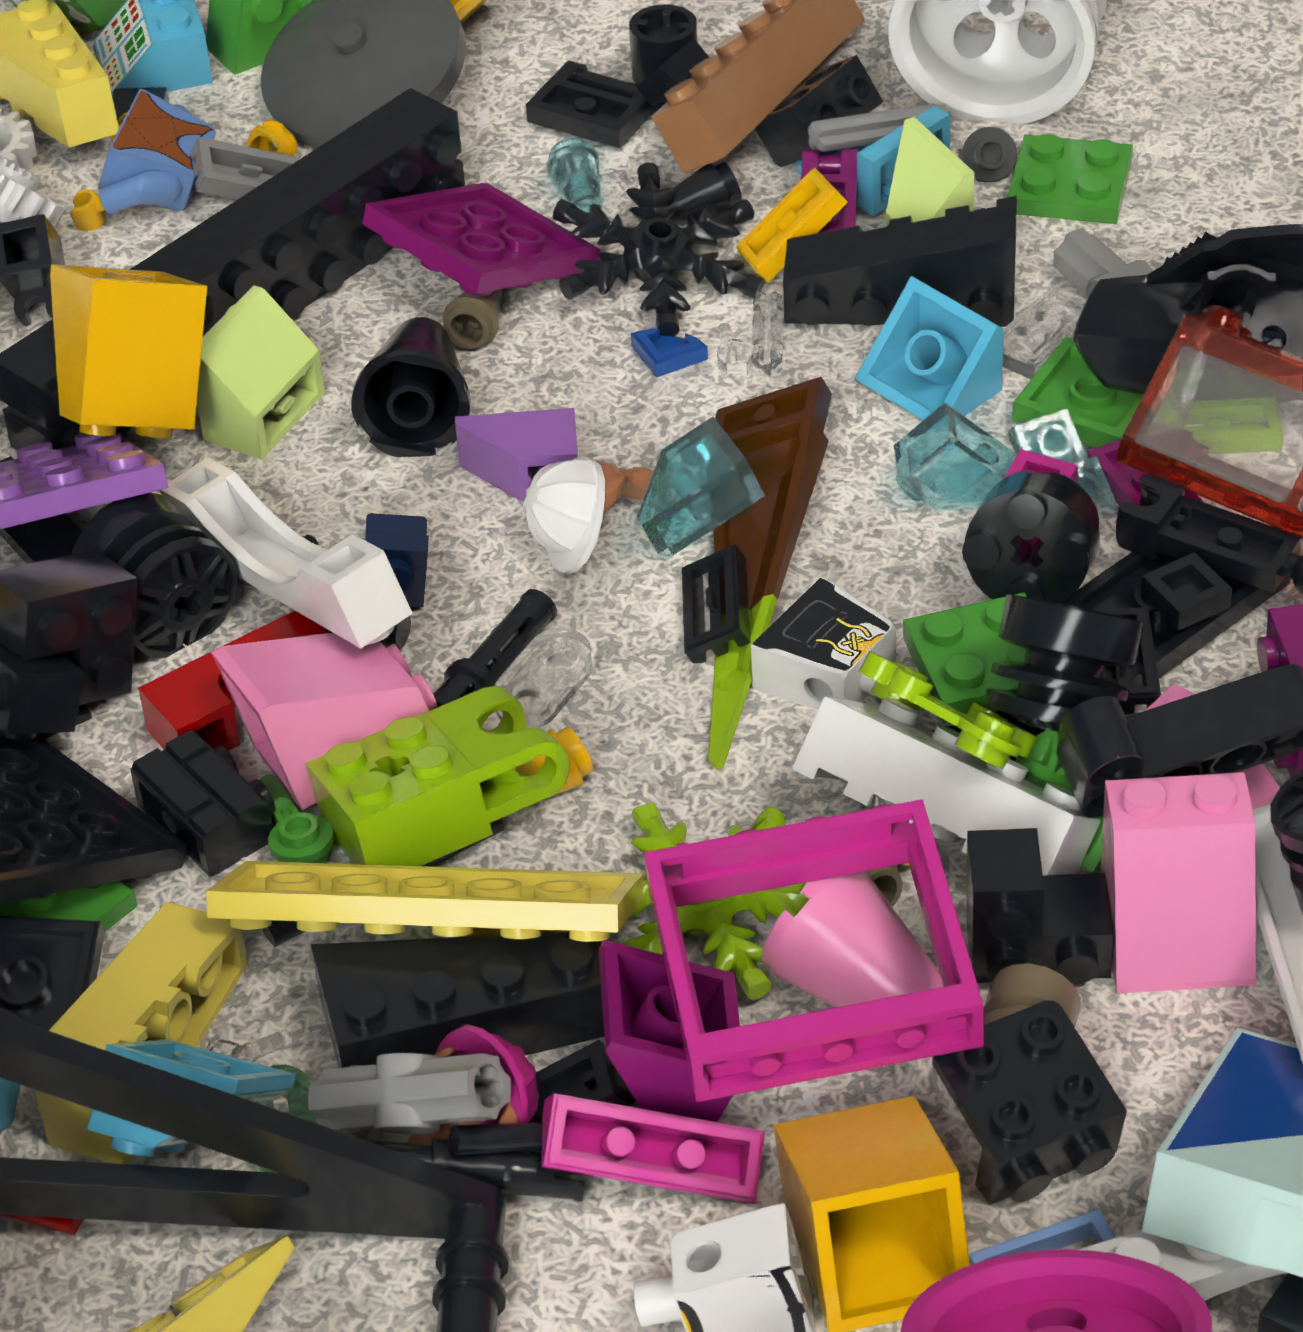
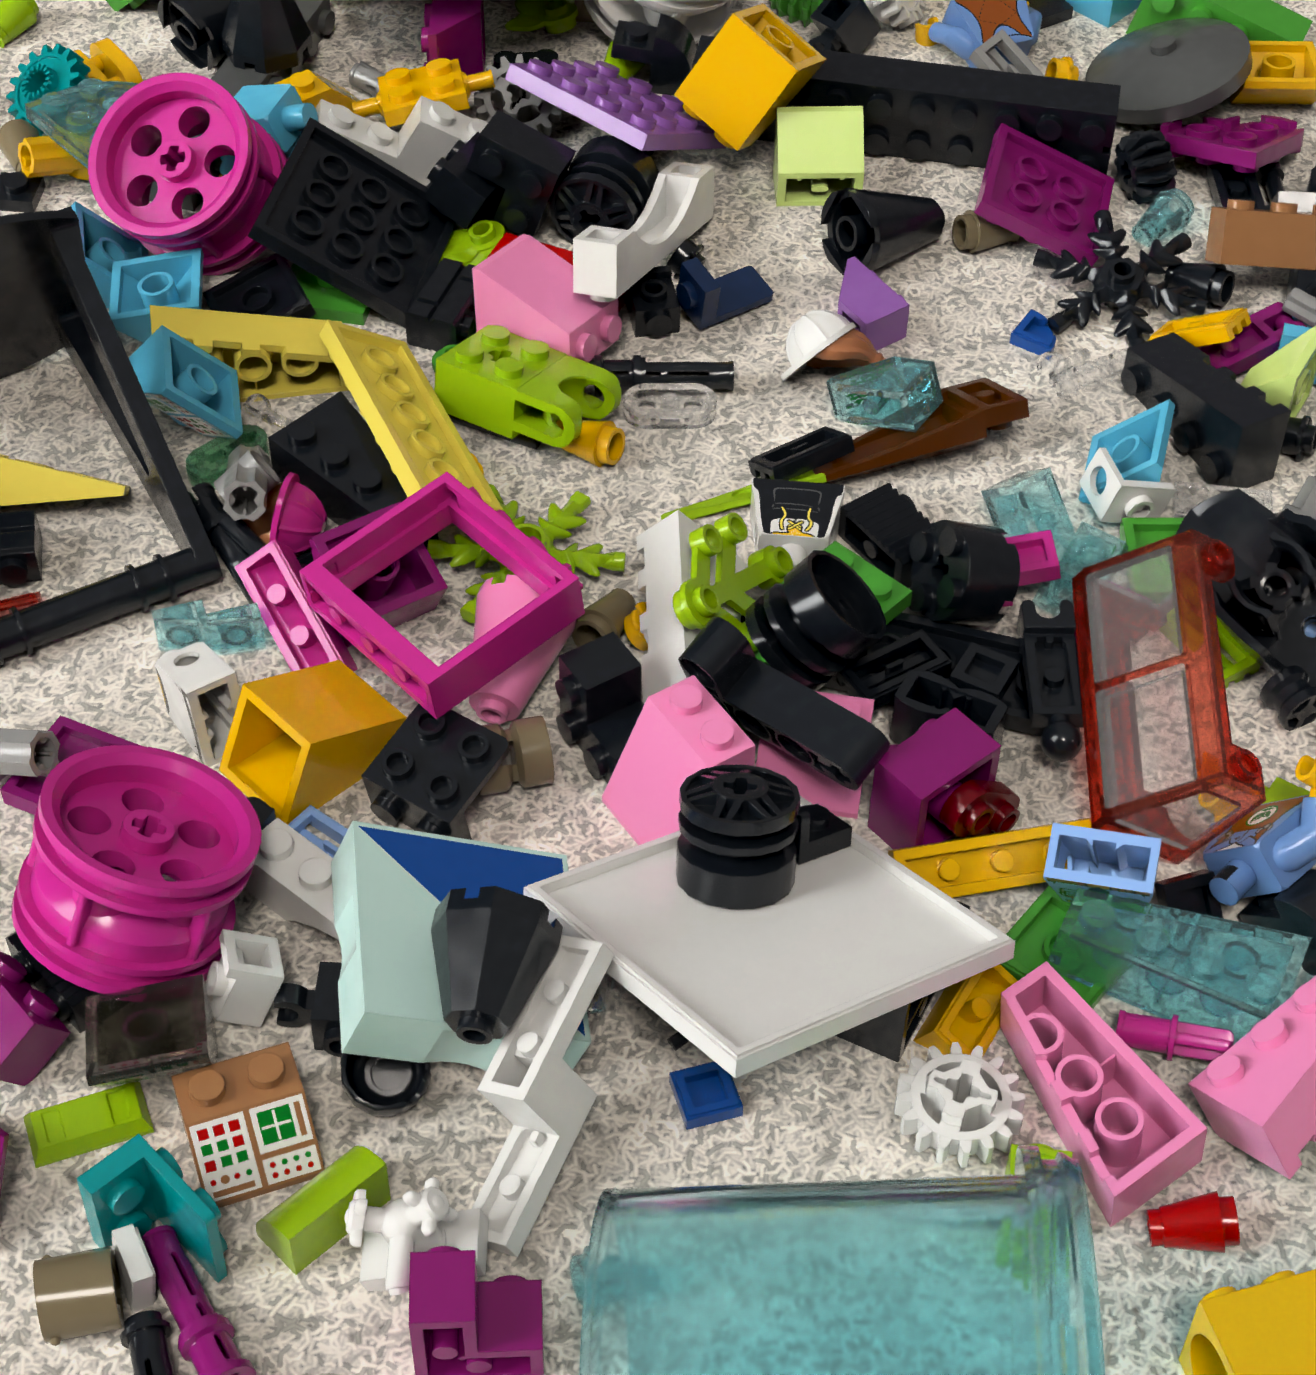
camera: 55 degrees right, 5 degrees up
(112, 743) = (475, 243): none -> lime plate
(502, 147) = (1145, 165): none -> black gear
(520, 70) = (1229, 142): none -> magenta plate
(600, 1251) = (223, 631): none -> clear light blue slope
(907, 575) = (881, 530): none -> black brick
(995, 384) = (1123, 497): none -> white bracket
(1216, 643) = (930, 696): none -> black brick

